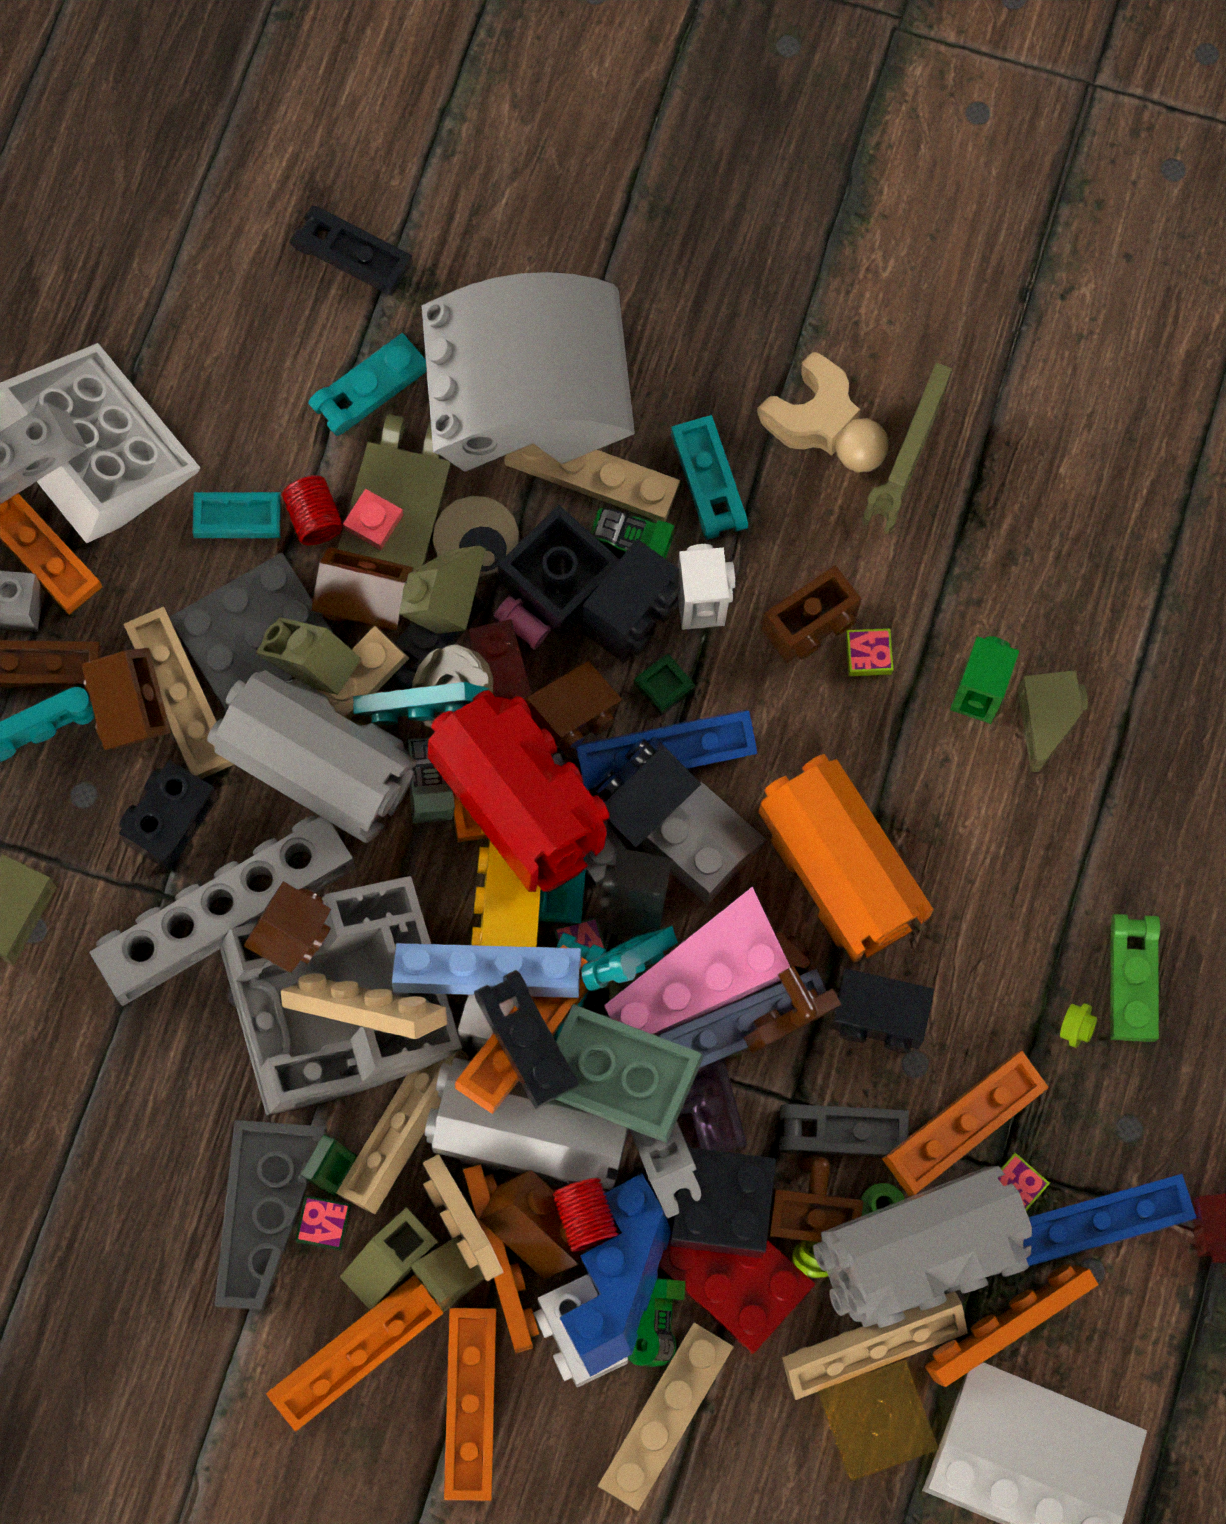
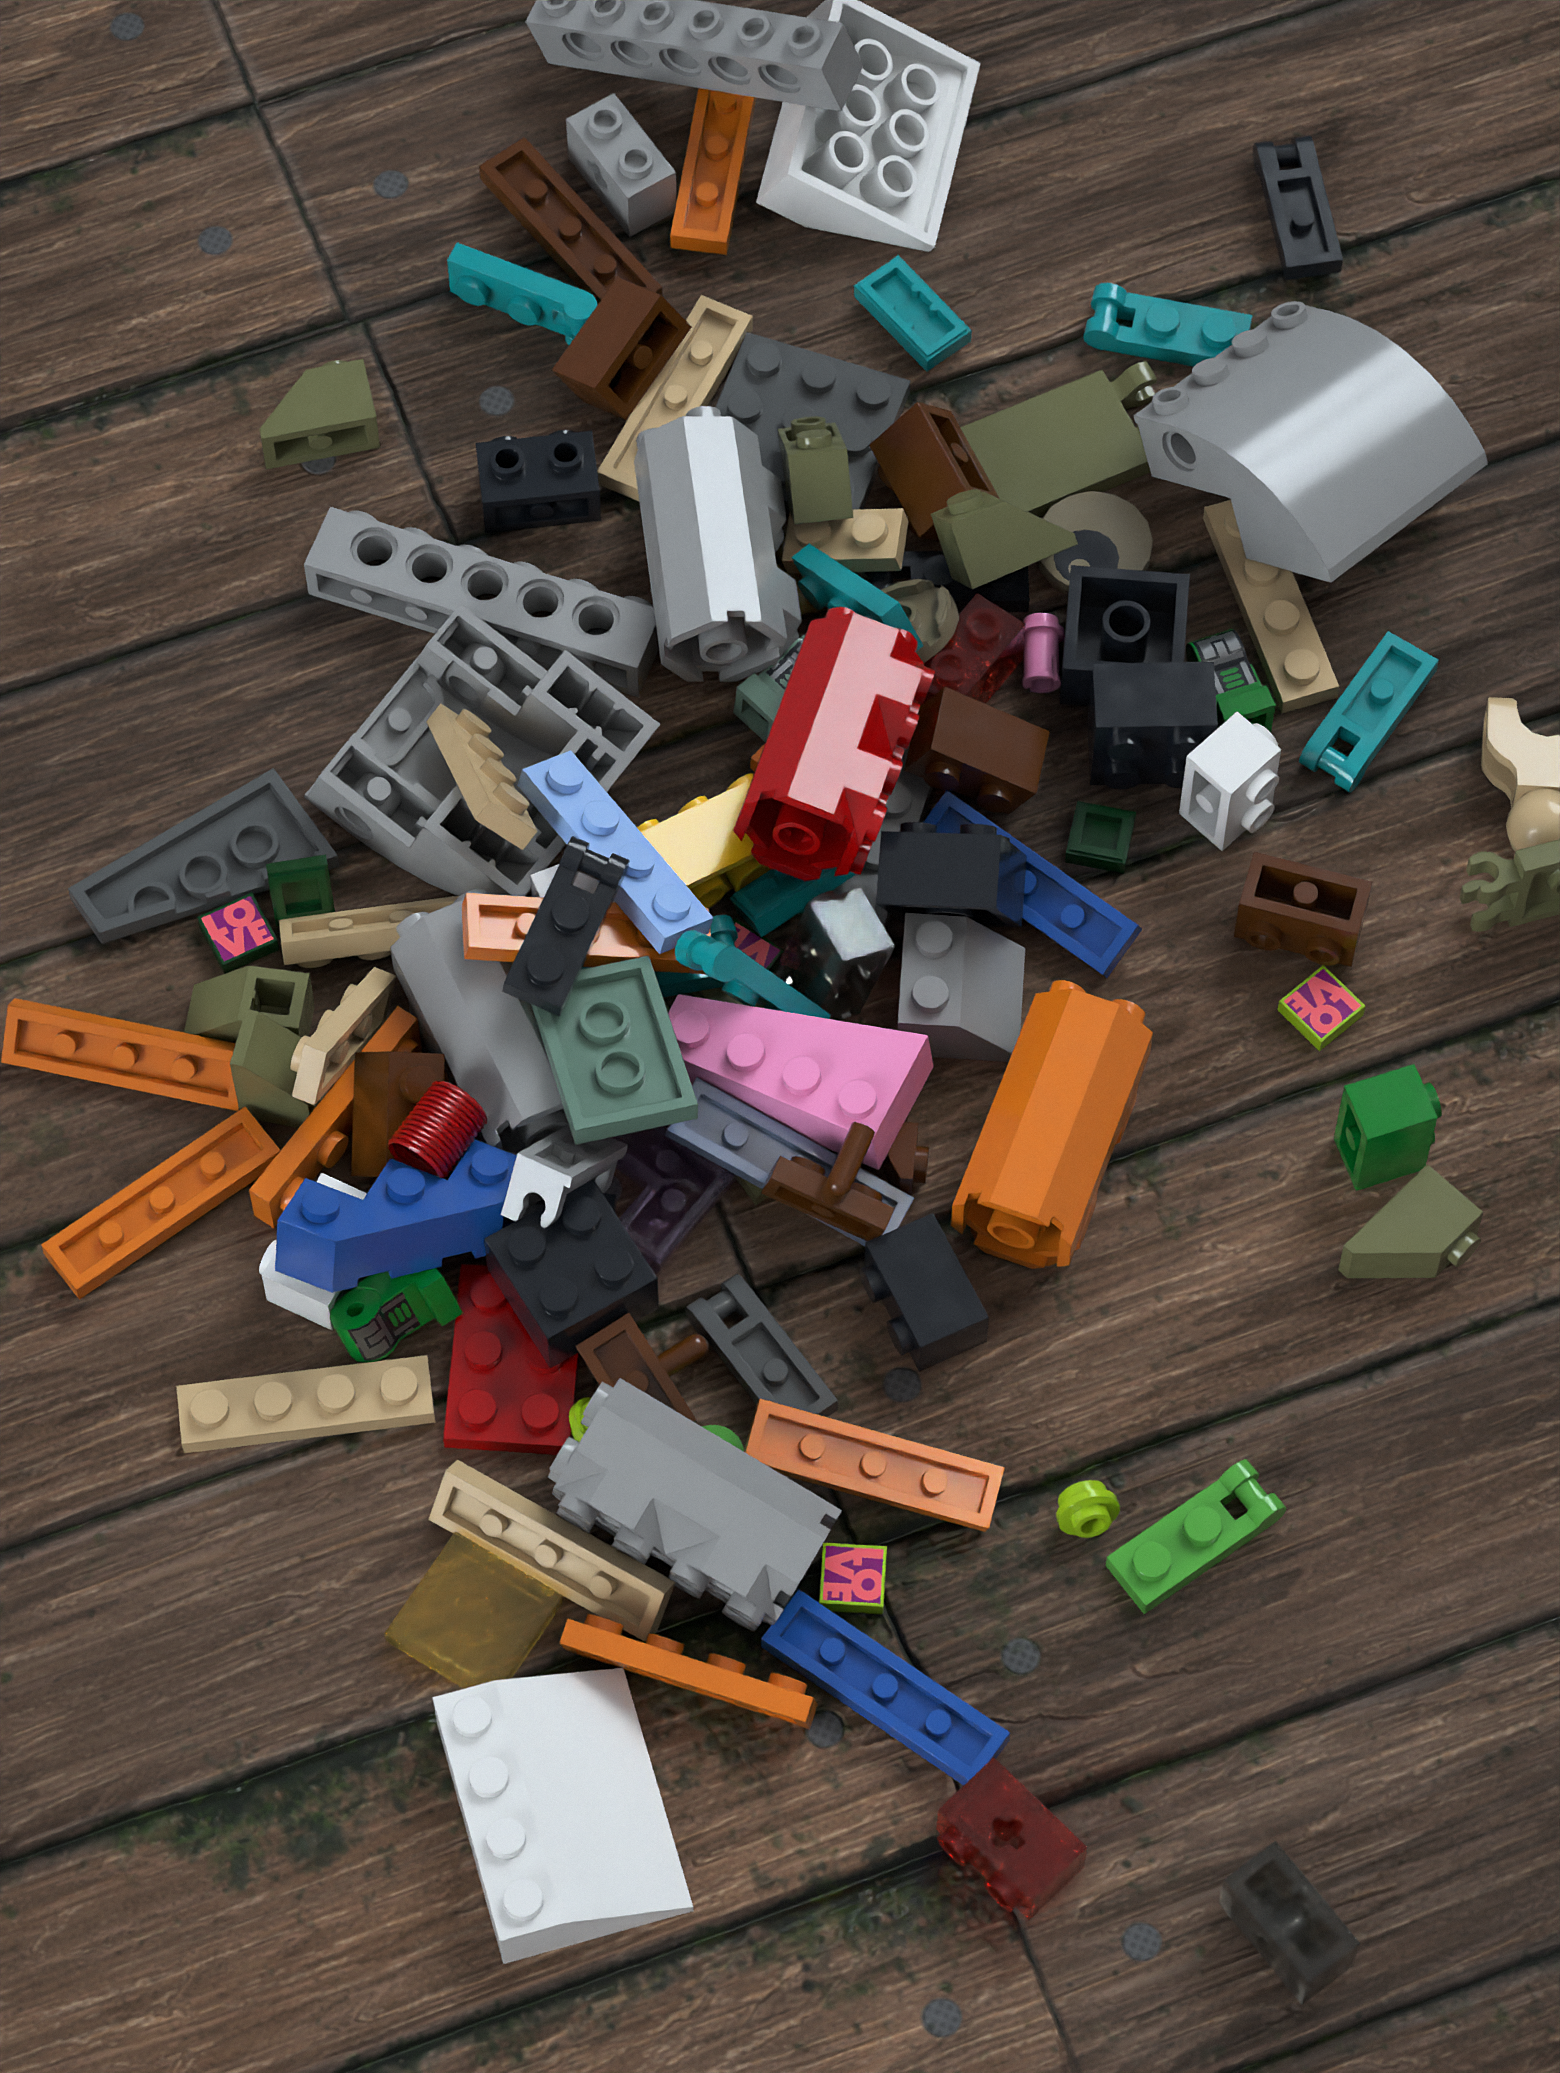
camera: 55 degrees right, 10 degrees down
(290, 927) = (500, 639): reddish brown brick -> none
(312, 510) = (979, 372): red piece -> none
(373, 519) = (1020, 432): coral plate -> none

